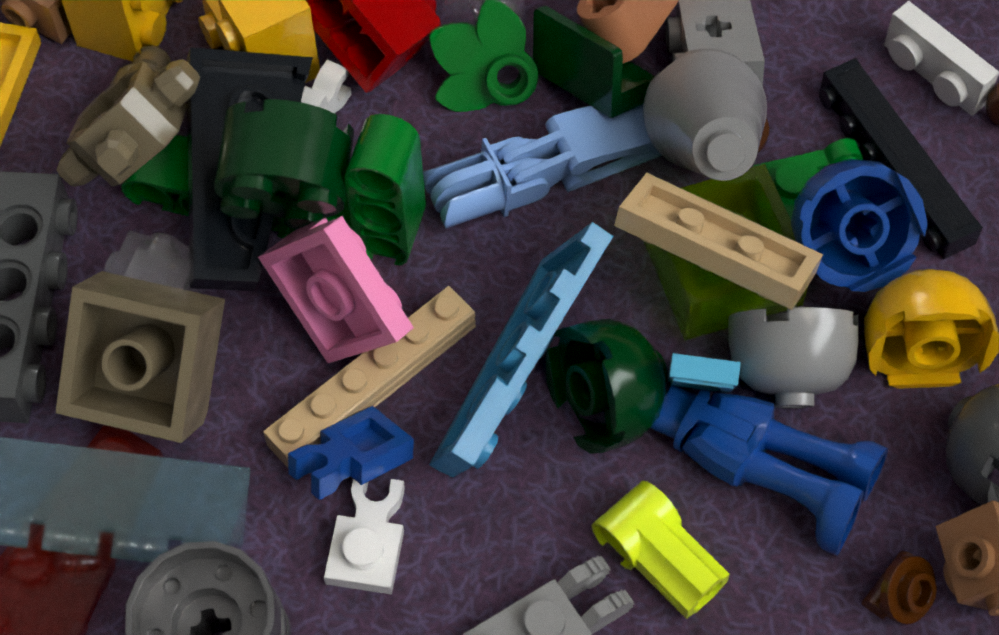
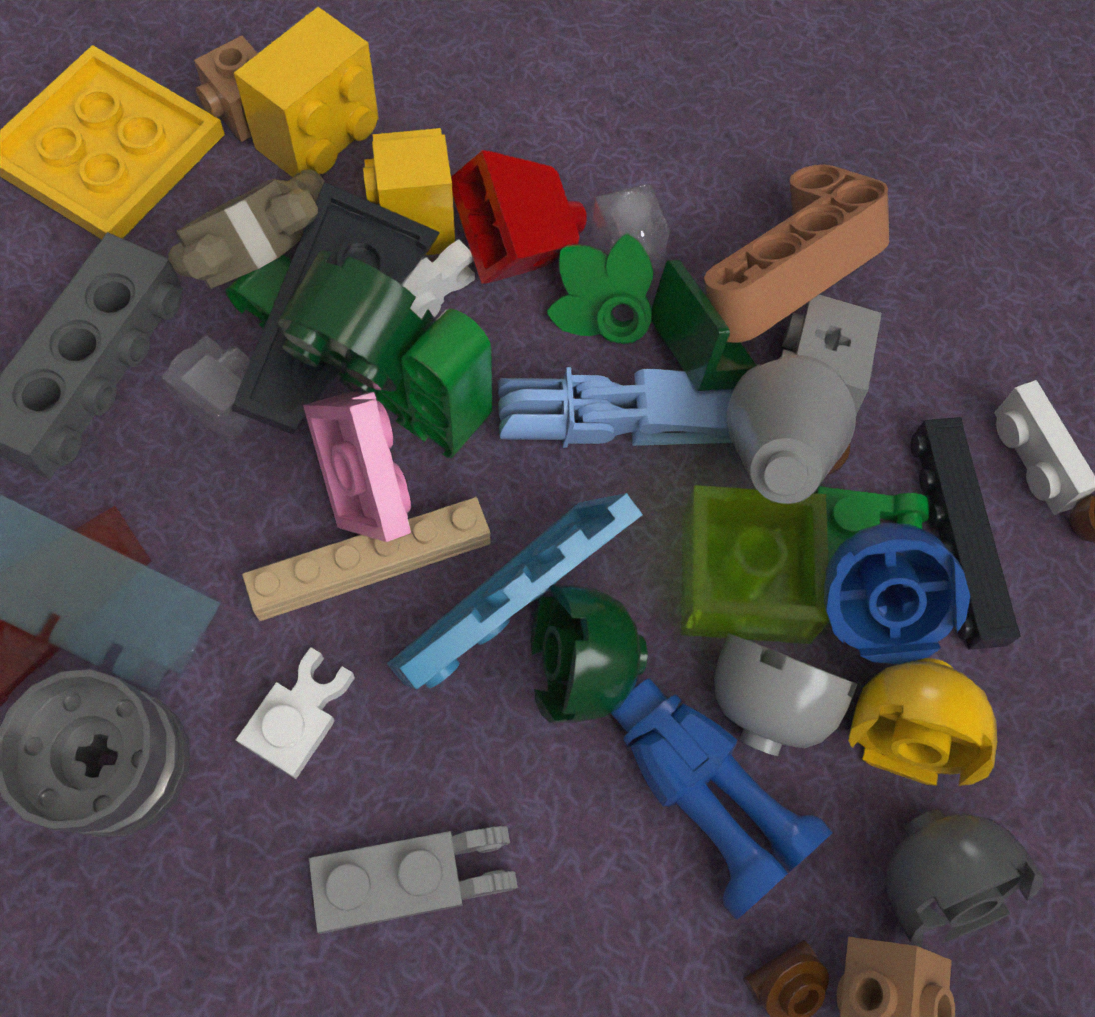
camera: 15 degrees right, 5 degrees up
(139, 356) = (155, 458): dark tan brick -> none
(354, 447) = (320, 623): blue plate -> none
(651, 538) = (561, 831): neon yellow piece -> none
(703, 373) = (677, 685): medium azure tile -> none
(718, 240) = (745, 560): tan plate -> none

